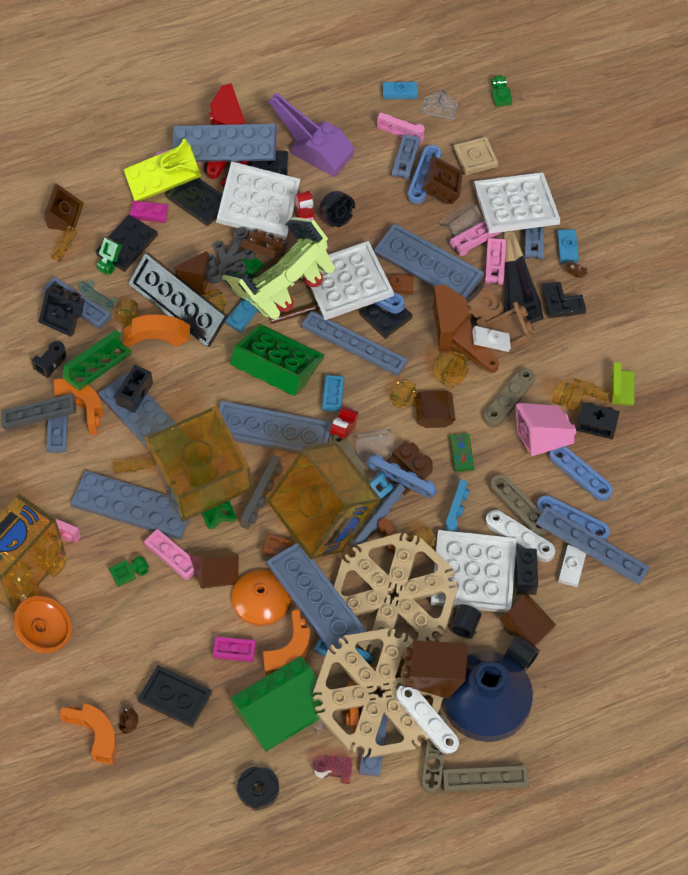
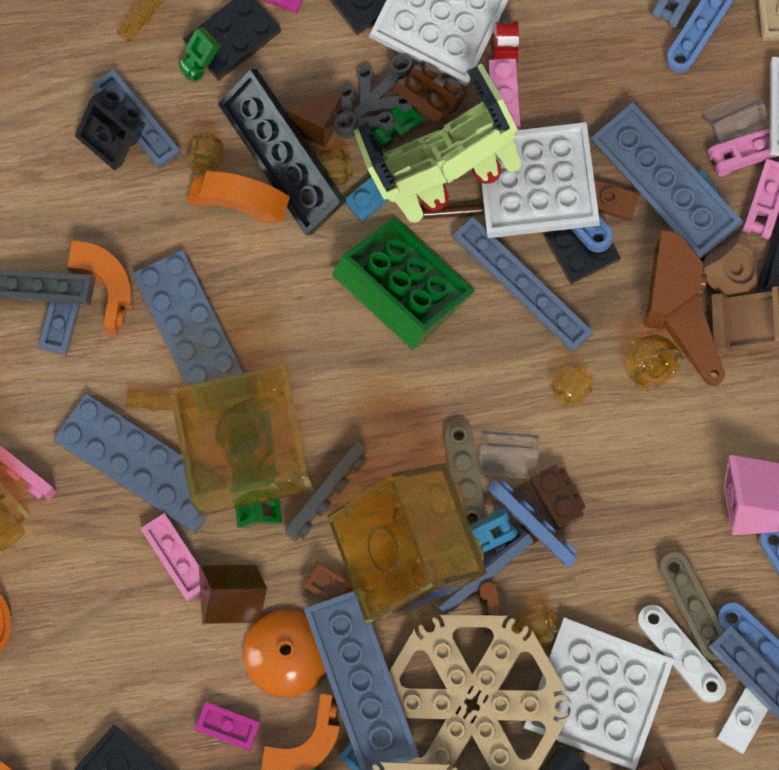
camera: 15 degrees right, 15 degrees up
(50, 359) = (78, 202): black leg -> none
(87, 290) = (154, 98): clear light blue piece -> none
(91, 359) = (135, 216): green fence -> none
(124, 573) = (101, 567): green plate -> none
(134, 388) = (182, 287): black brick -> none
(273, 428) = (369, 395): sand blue plate -> none
(333, 393) = (470, 358): dark azure plate -> none
(336, 208) = (553, 55): black cylinder -> none
(344, 423) = (472, 414): red leg -> none
(434, 409) = (612, 419): reddish brown slope -> none
(443, 180) = (725, 47): reddish brown plate -> none
(457, 509) = (601, 590): dark azure plate -> none
(462, 452) = (633, 500): green tile -> none
(491, 338) = (724, 334): white plate -> none
(509, 397) = (726, 428): dark tan plate -> none
(526, 571) = (674, 715): black brick -> none

